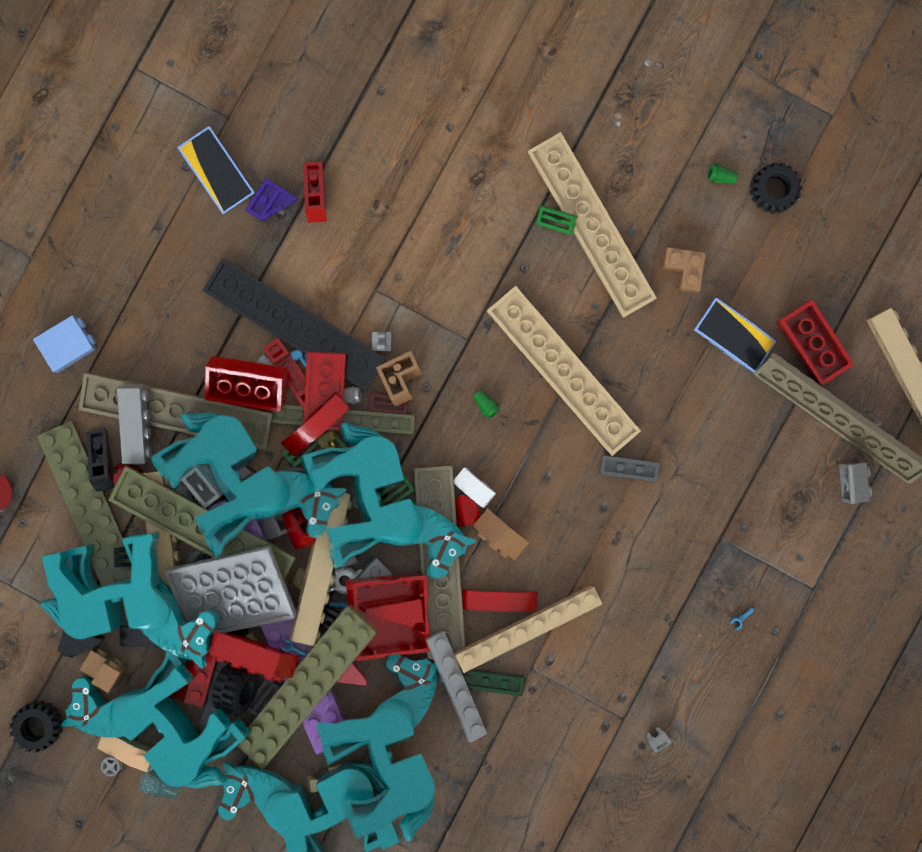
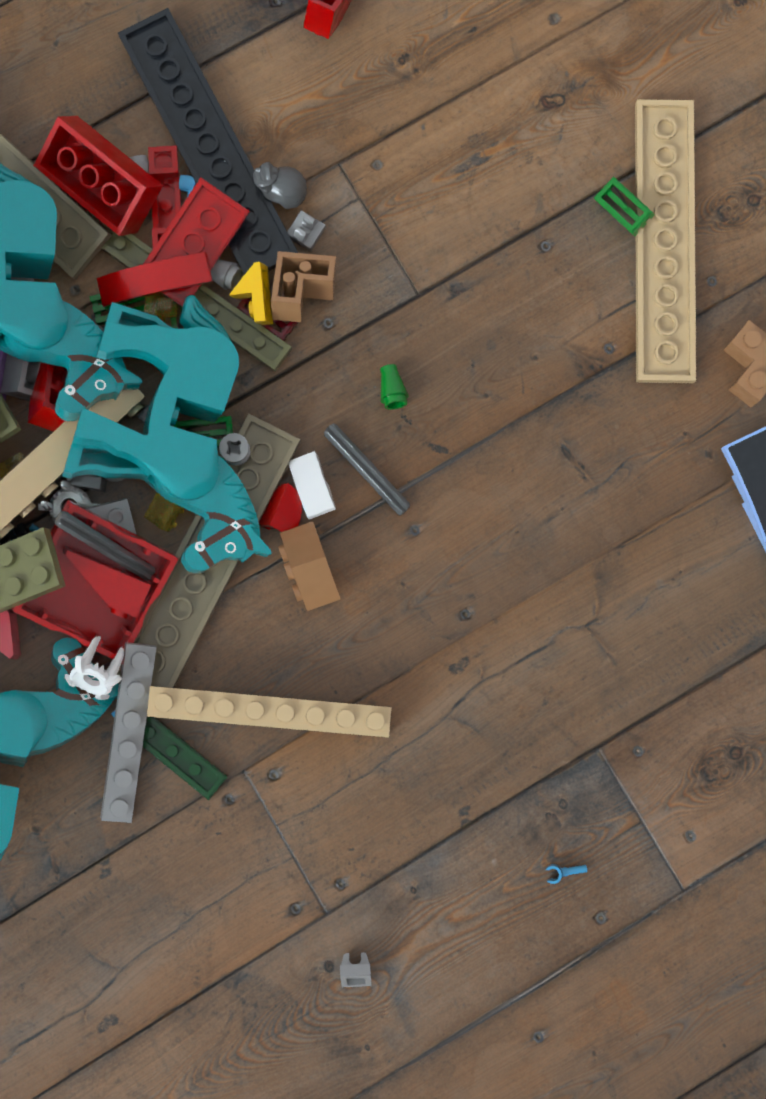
camera: 35 degrees right, 5 degrees down
(352, 325) = (281, 184): none -> dark grey hair
(376, 393) = (256, 286): none -> yellow slope
(383, 593) = (104, 545): none -> dark grey axle
(400, 554) = (163, 513): none -> clear yellow tile
(422, 494) = (238, 453): none -> light grey wheel
(428, 665) = (107, 678): none -> white piece
(499, 459) = (366, 469): none -> dark grey axle
(499, 601) = (255, 654): red slope -> none
(563, 371) = (519, 405): tan plate -> none
(629, 468) = (531, 581): dark grey plate -> none

